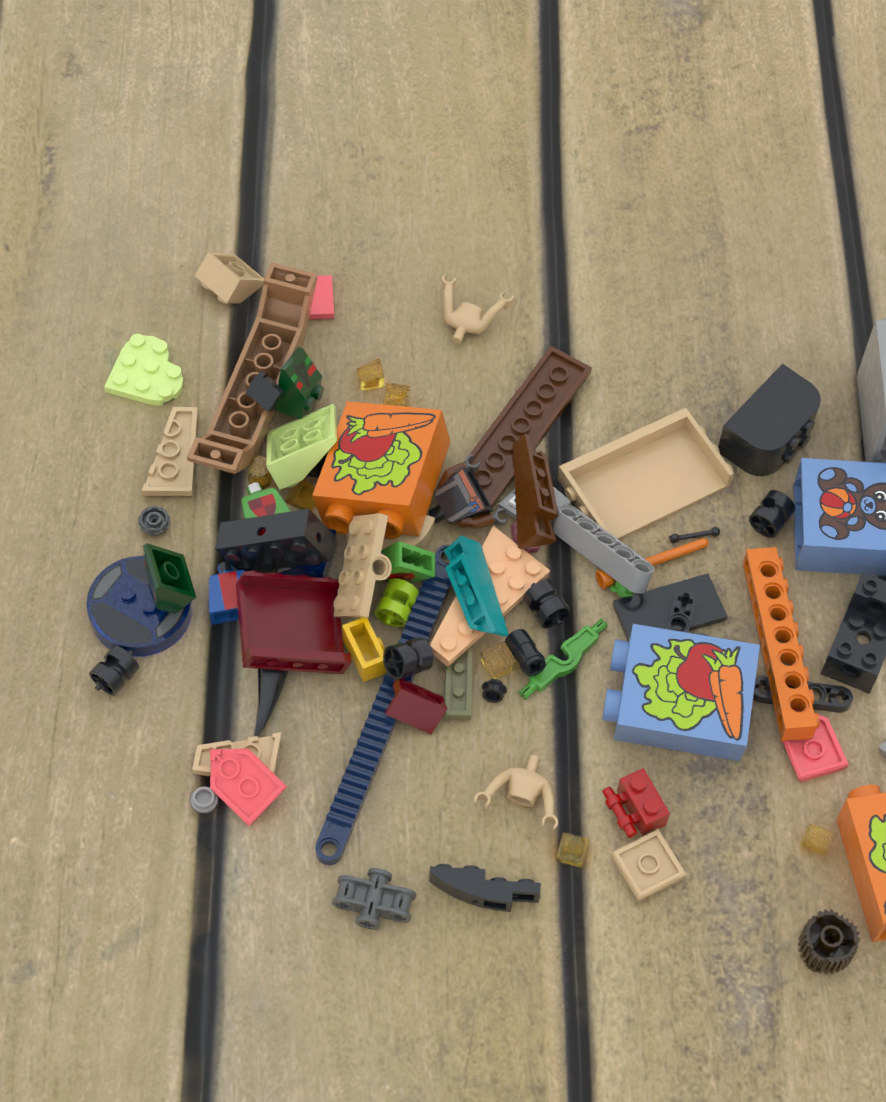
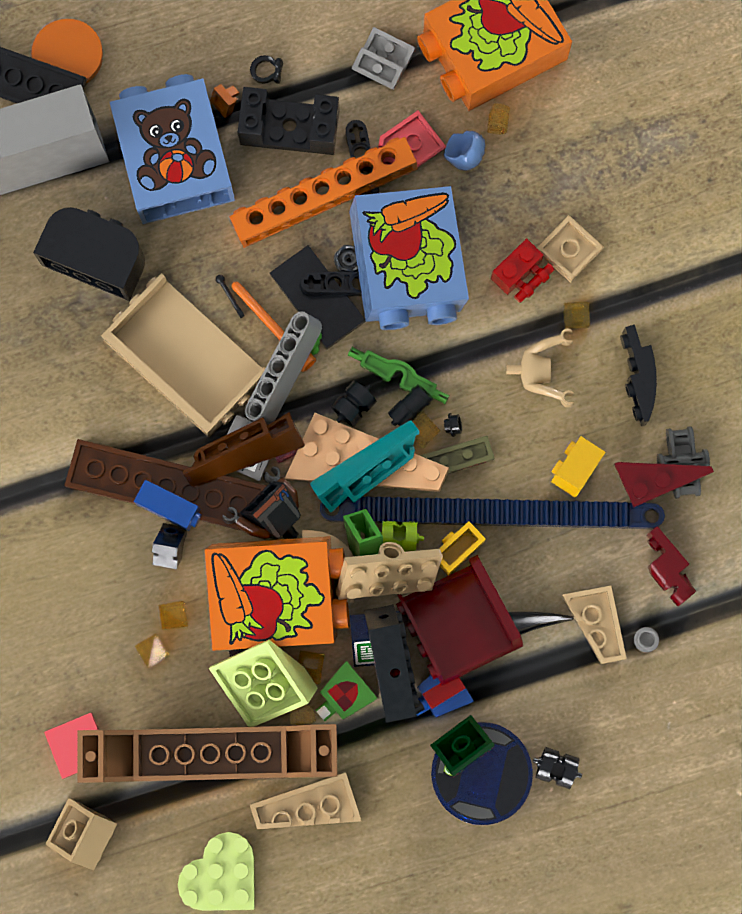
camera: 105 degrees left, 20 degrees up
(152, 514) = (387, 805): dark grey plate -> none
(243, 782) = (623, 608): coral tile -> none
(265, 391) = (227, 734): black tile -> none
(269, 844) = (668, 567): none -> dark red plate
(301, 385) = (200, 708): dark green slope -> none
(363, 851) = (651, 480): none -> dark red wing
(407, 788) = (577, 467): none -> yellow brick
(408, 658) = (462, 500): black wheel -> none
(416, 706) = (496, 483): dark red panel -> none
(462, 409) = (168, 546): none -> black brick
(467, 316) = (54, 577): tan piece -> none
(499, 414) = (168, 506): none -> blue brick
(772, 513) = (189, 230): black wheel -> none
(788, 792) = (465, 150): none -> medium blue hair
(824, 956) = (599, 85): dark brown brick -> none

